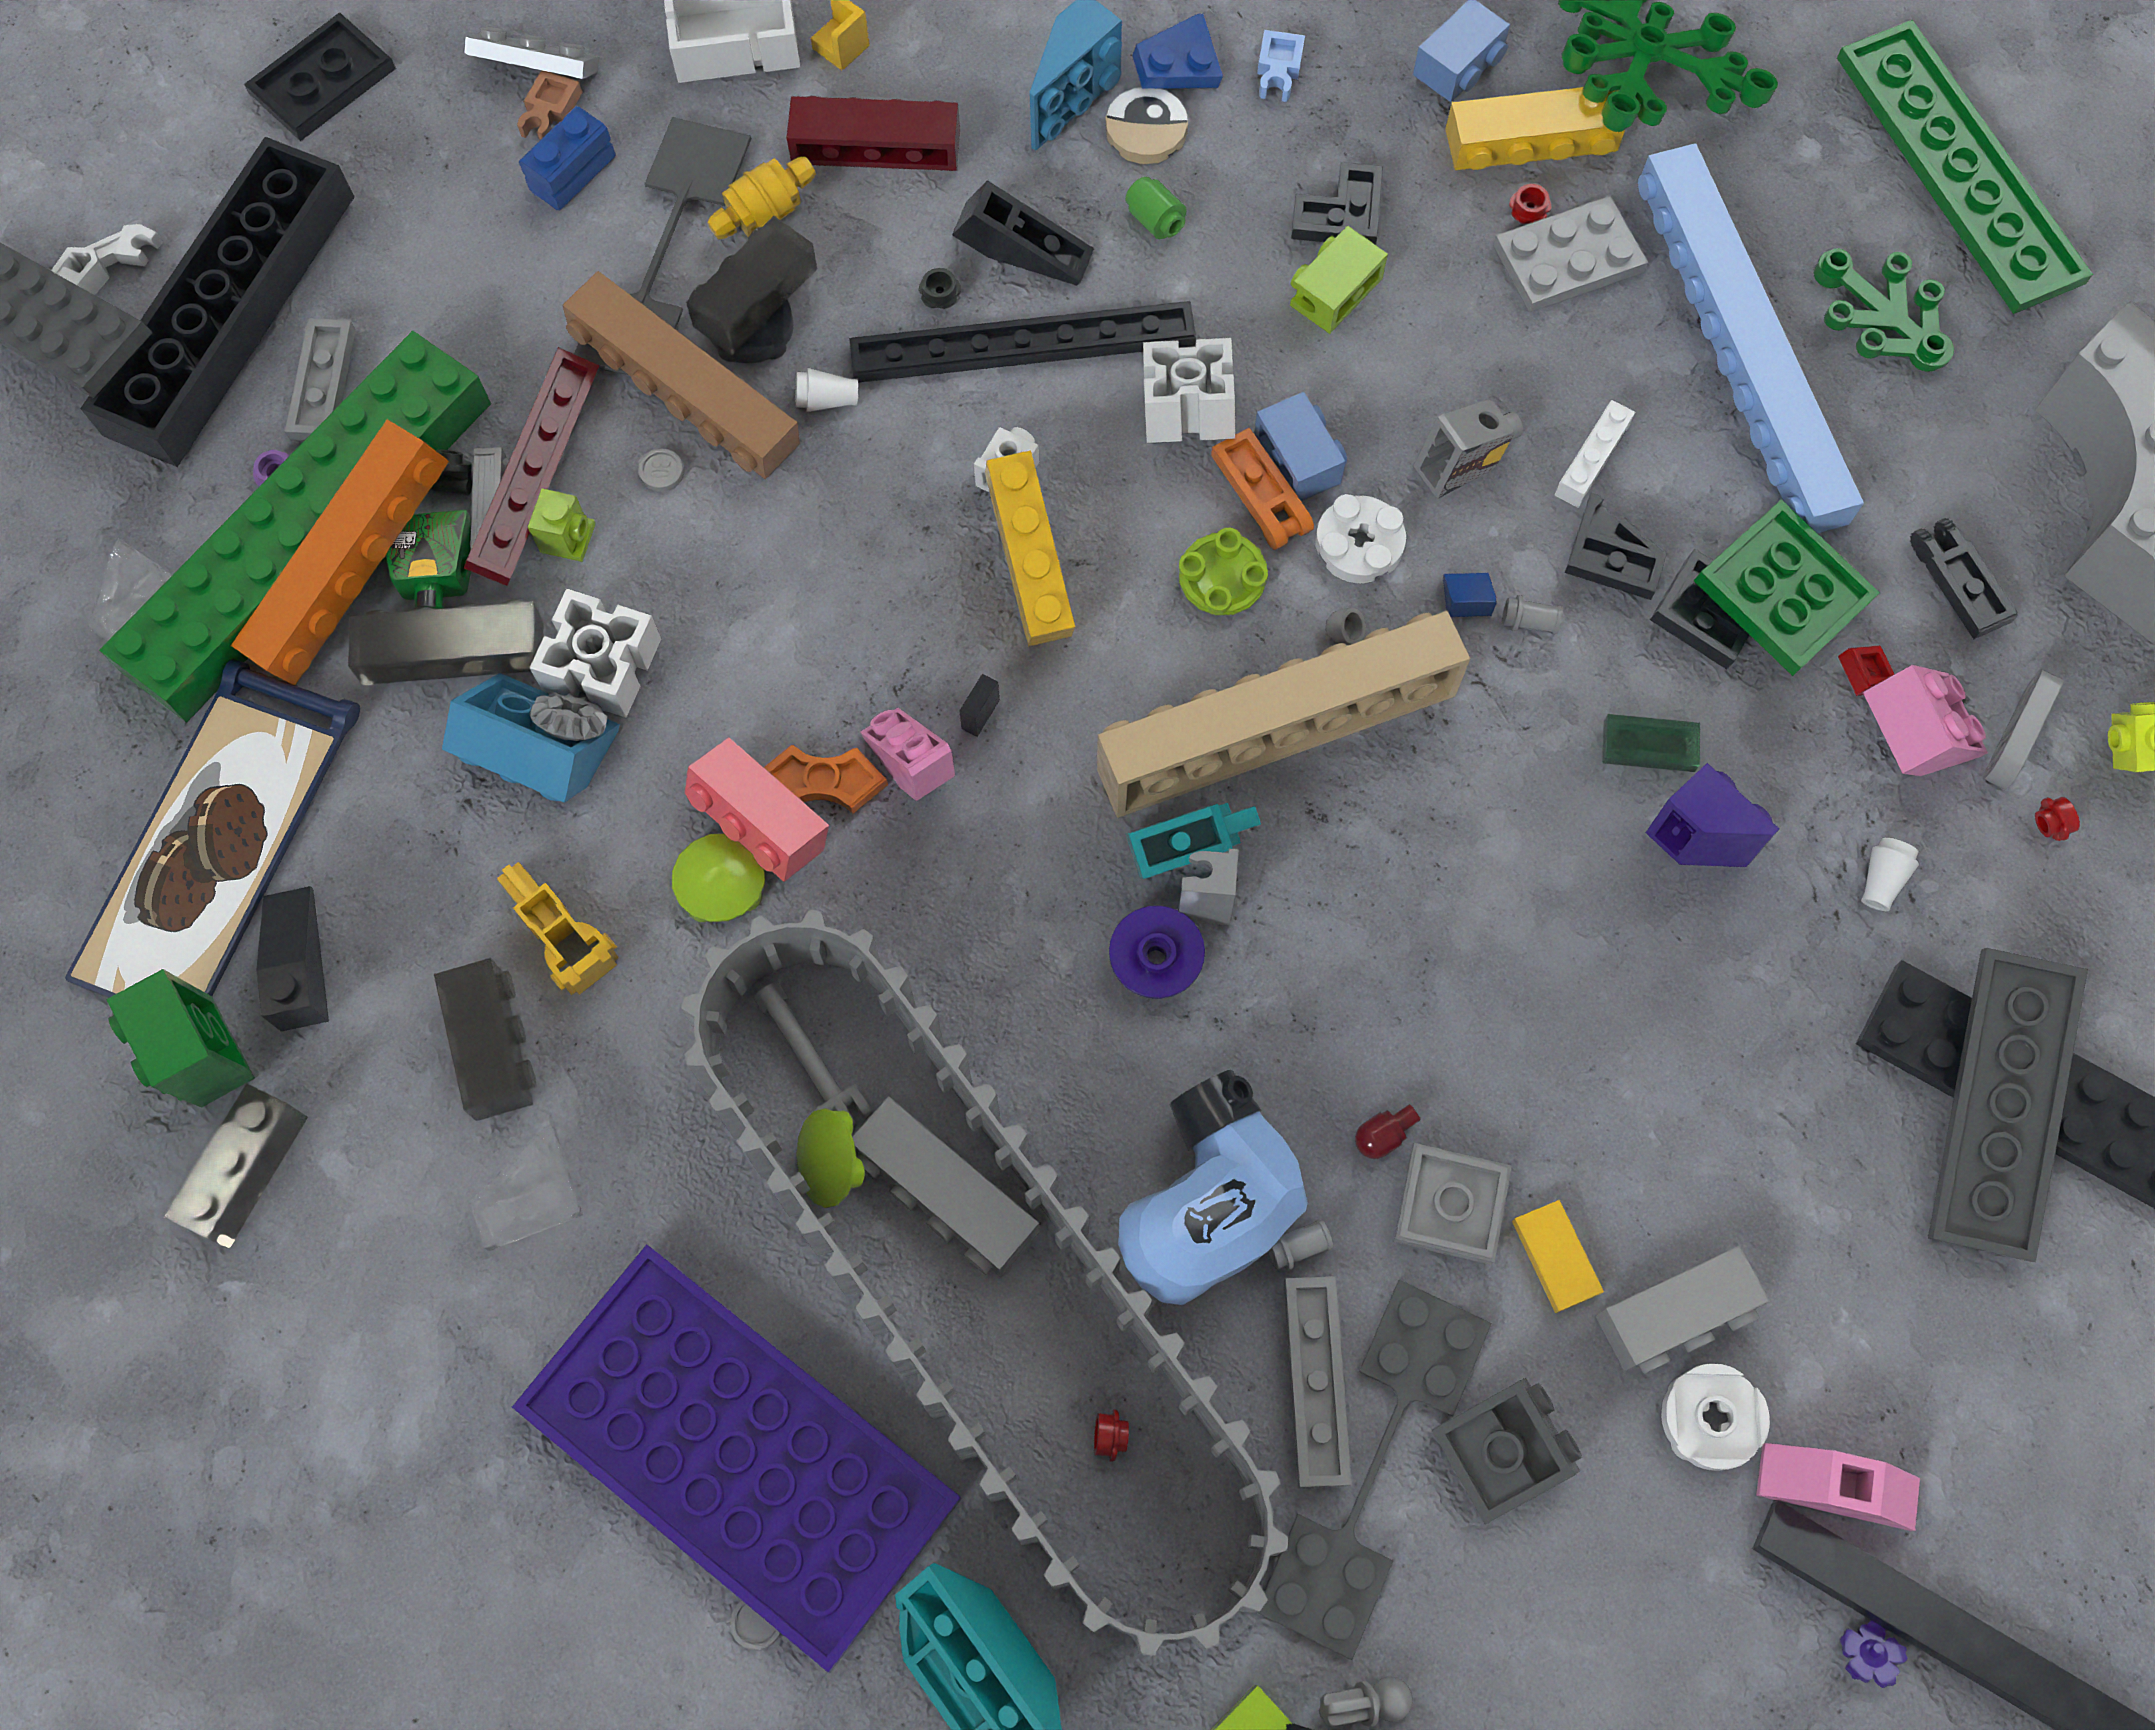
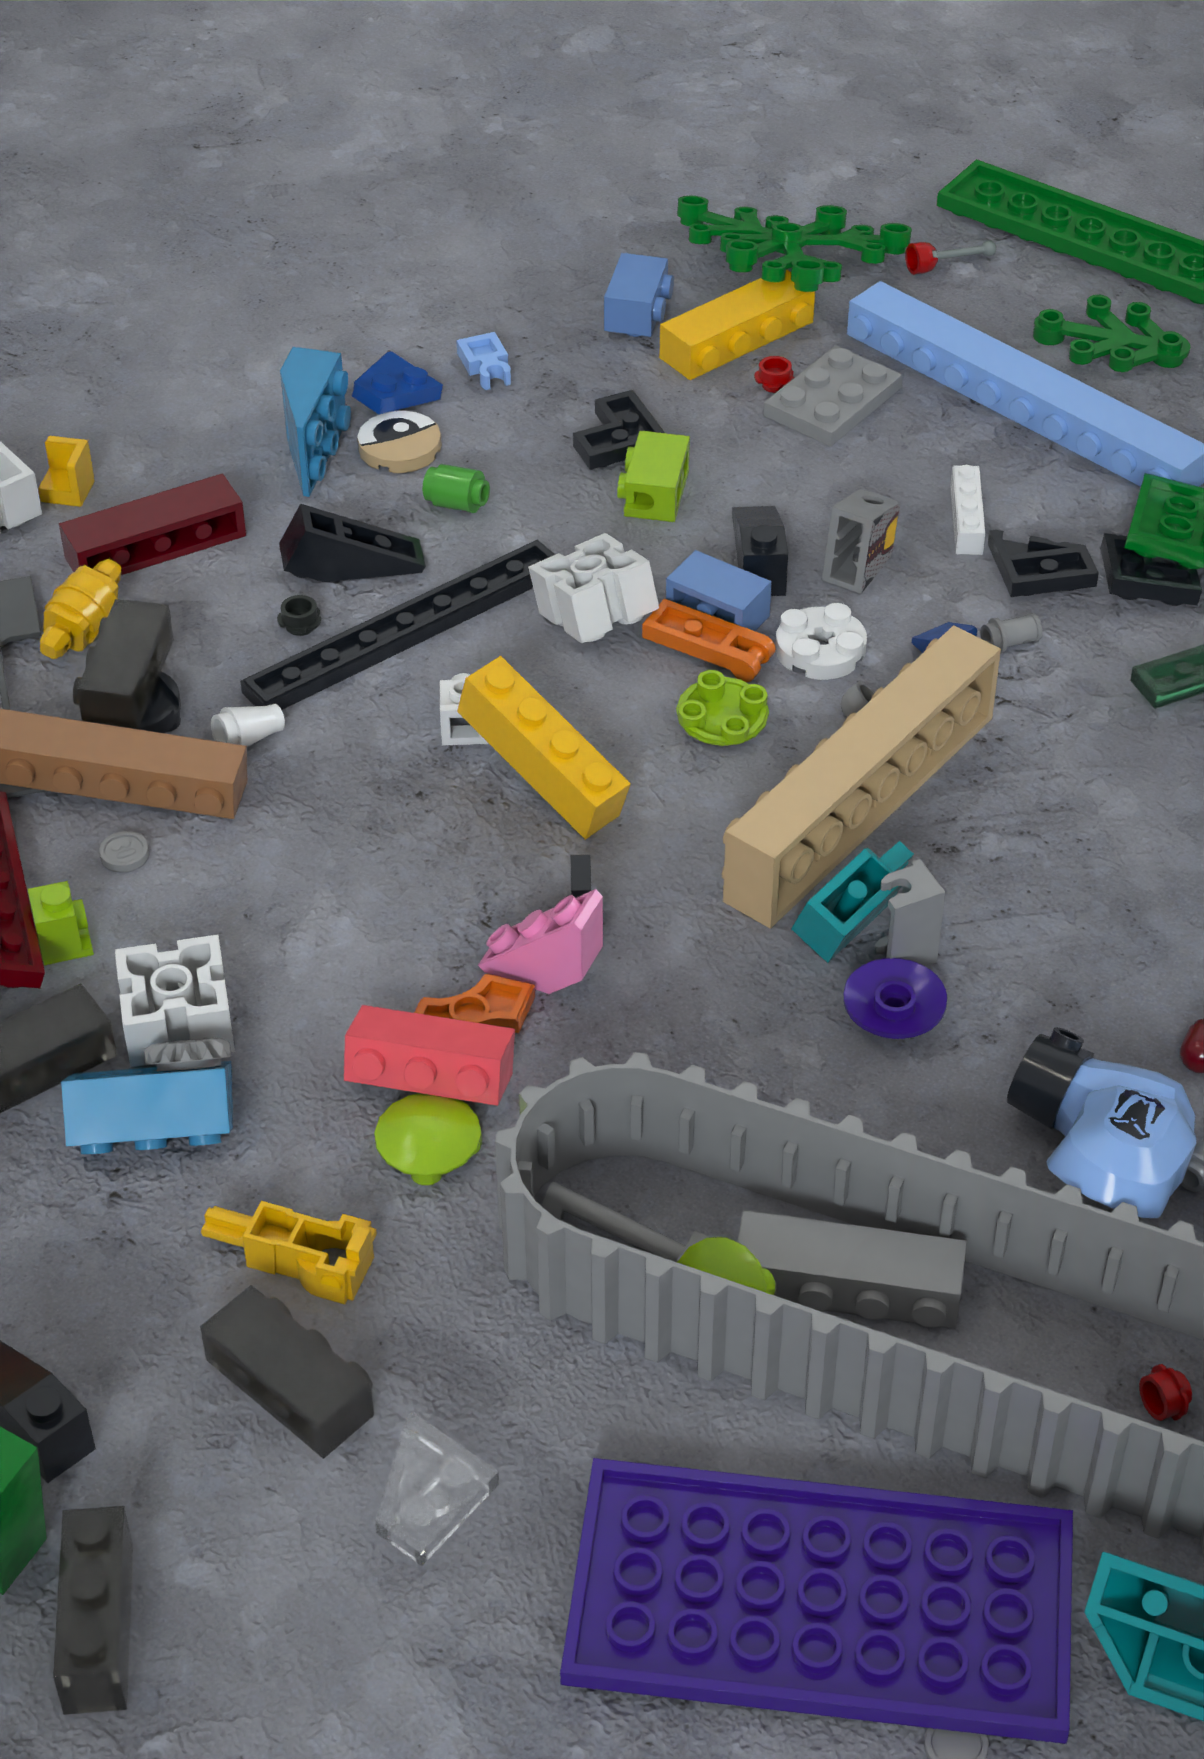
camera: 30 degrees left, 25 degrees down
(1377, 404) = (762, 544): none -> black slope
(1773, 122) = (923, 256): none -> hinge

